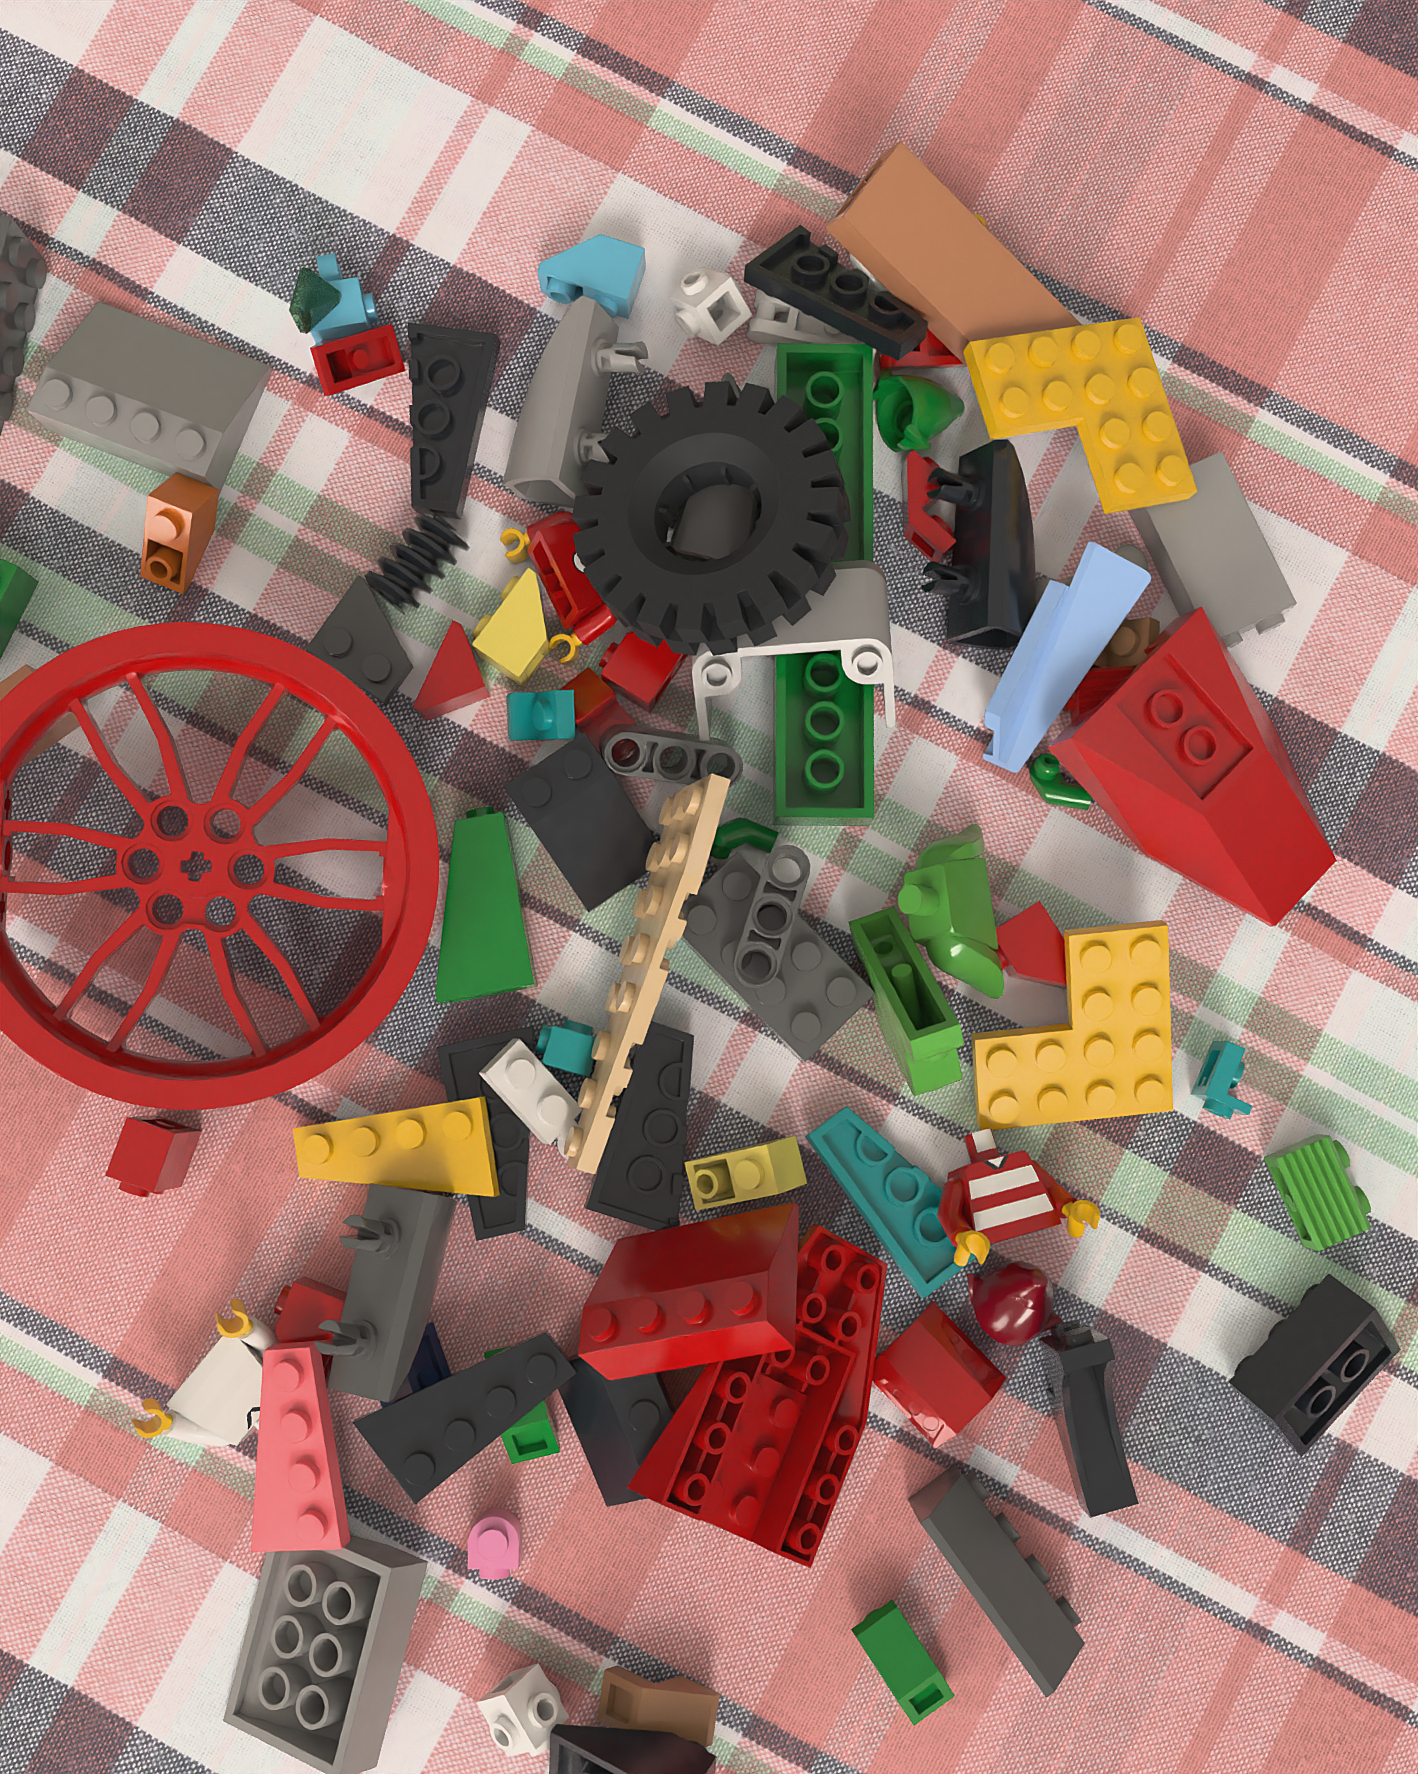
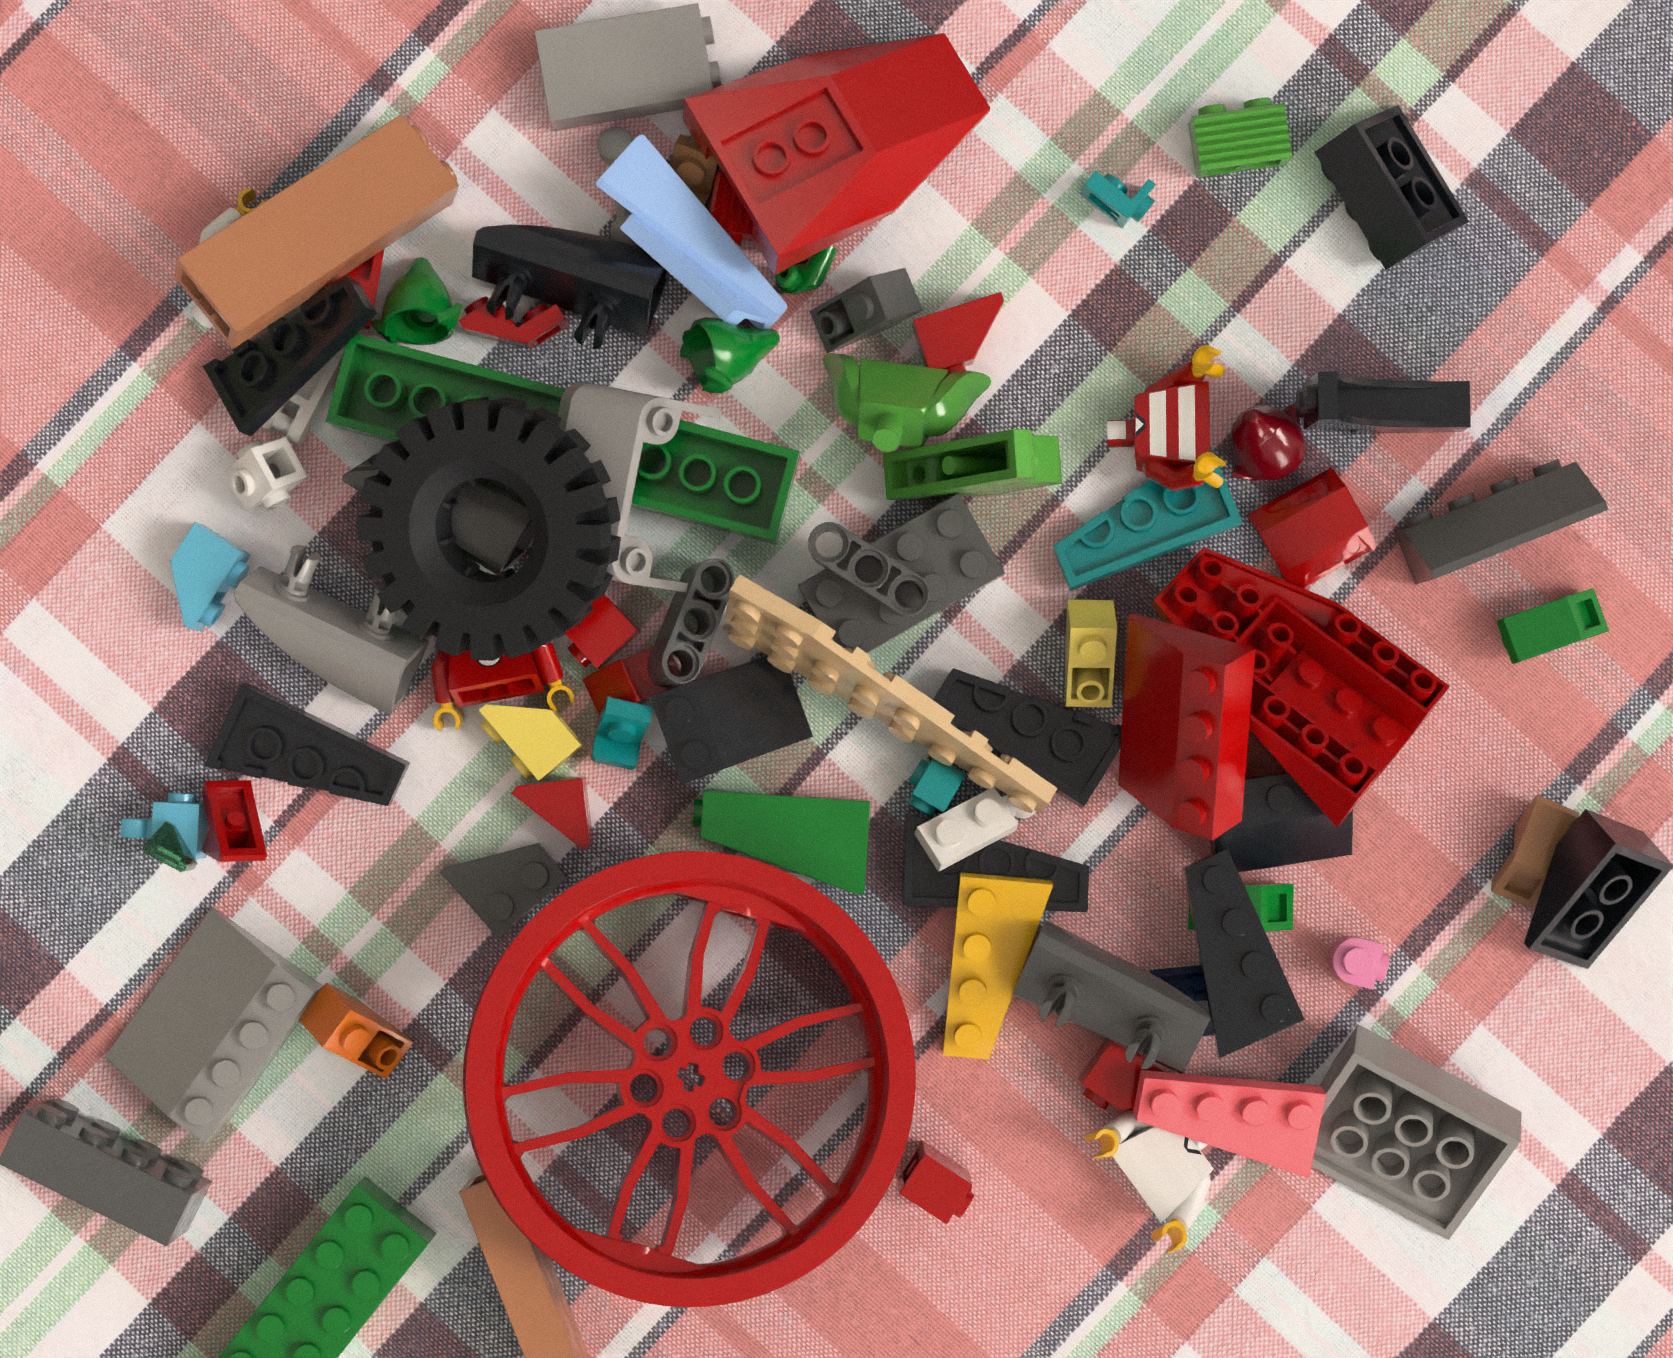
camera: 60 degrees left, 5 degrees up
(416, 561) = (442, 813): black piece -> none
(523, 1711) = (1507, 970): white brick -> none
(740, 832) = (775, 574): green arm -> none
(954, 722) = (724, 351): none -> green hat
(1036, 853) = (866, 309): none -> dark grey slope
(1102, 384) = (446, 125): yellow plate -> none
(1108, 1055) = (1069, 296): yellow plate -> none

